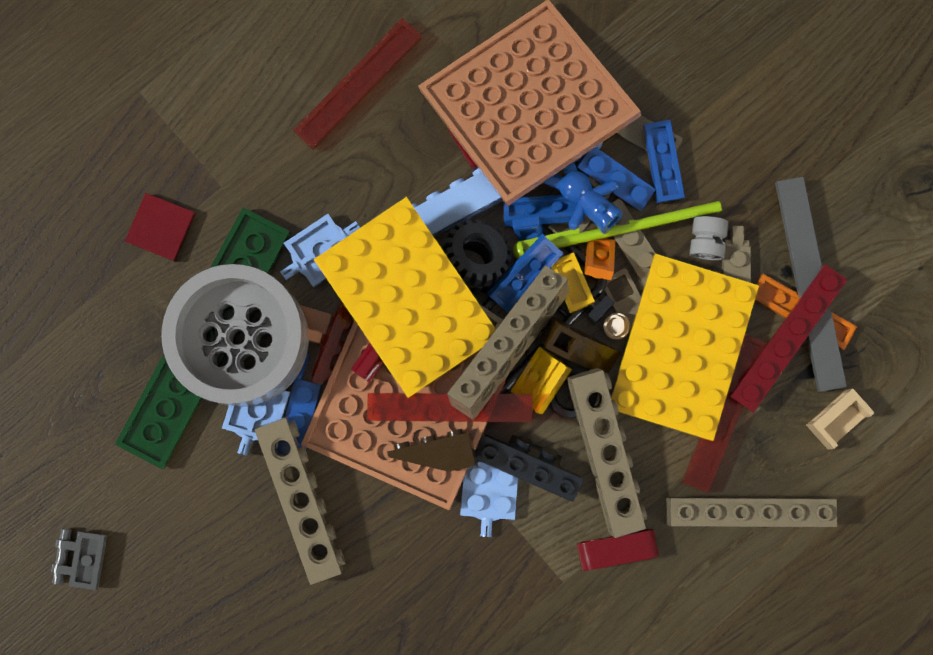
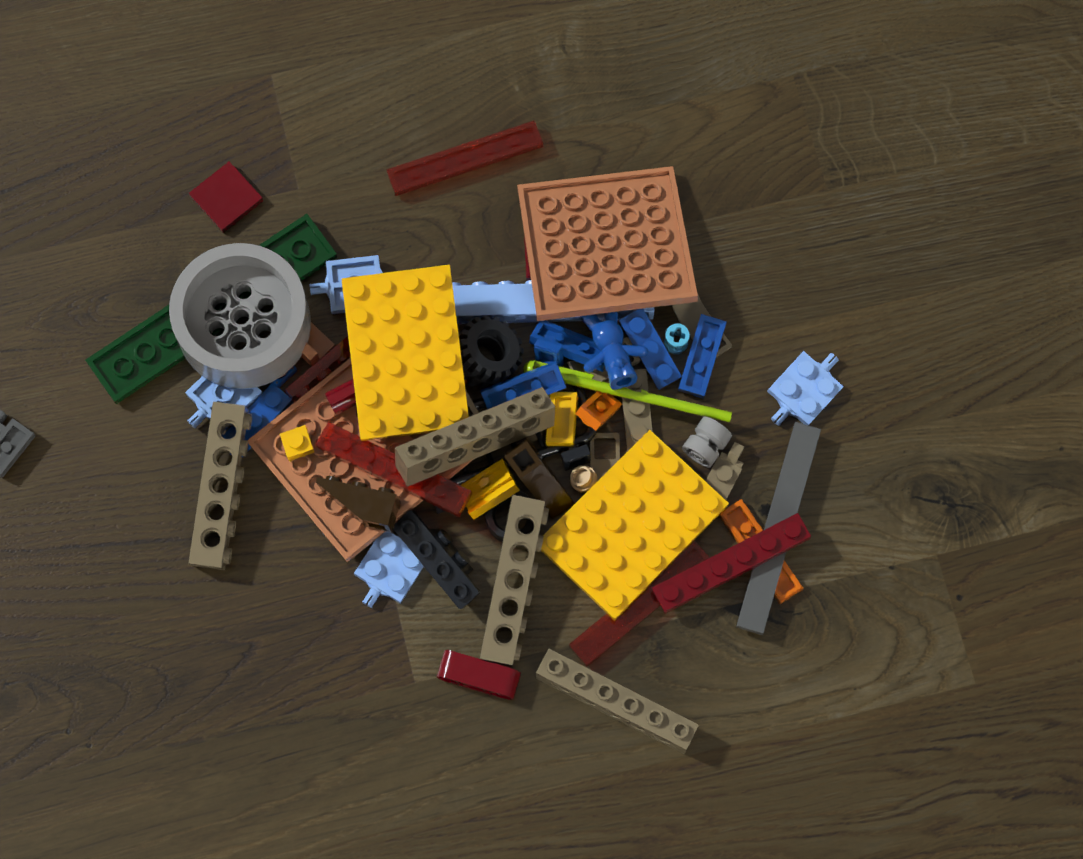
camera: 25 degrees right, 10 degrees down
(348, 425) = (297, 443): none -> yellow plate
(637, 150) = (669, 338): none -> medium azure bush
(767, 146) = (805, 389): none -> light blue plate
(839, 418) = (743, 661): tan panel -> none

